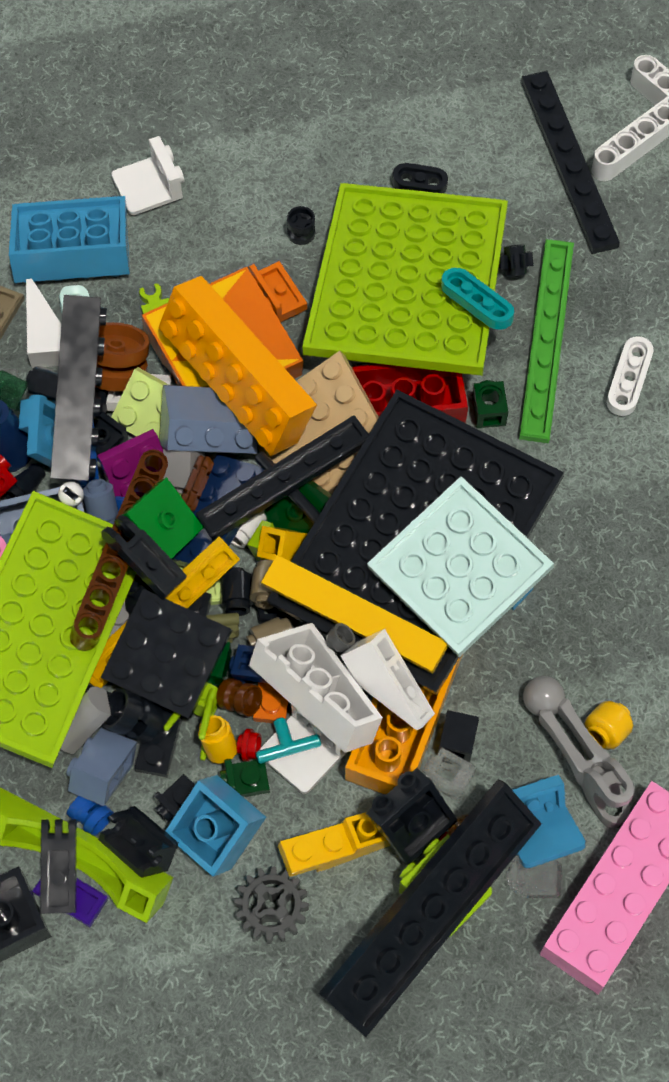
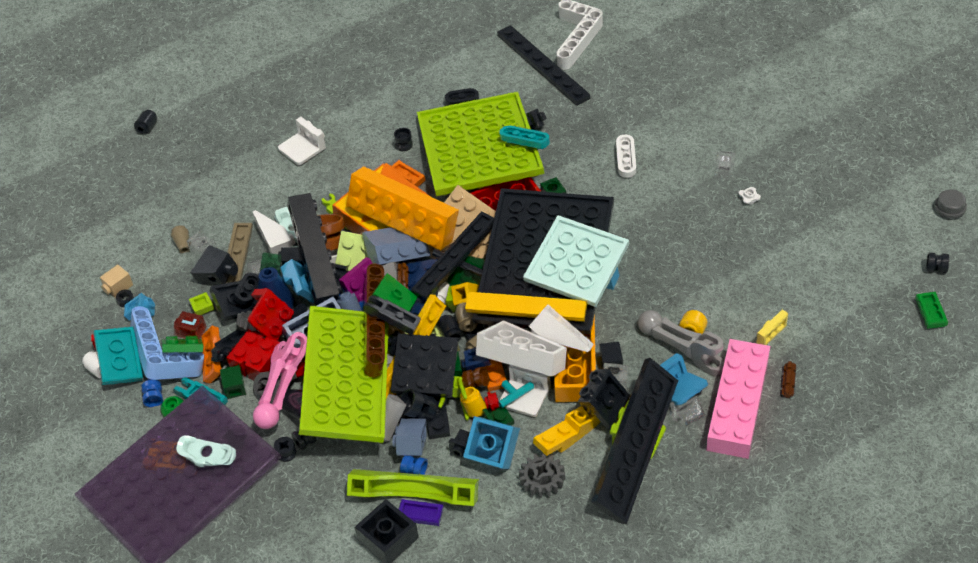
camera: 15 degrees left, 15 degrees down
(58, 868) = (409, 494): black hinge -> none
(69, 239) = (268, 186): dark azure slope -> none
(75, 488) = (329, 304): white hinge -> none
(139, 842) = (451, 466): black hinge -> none
(343, 642) = (523, 319): dark grey hinge -> none
(546, 342) = (569, 149): bright green tile -> none

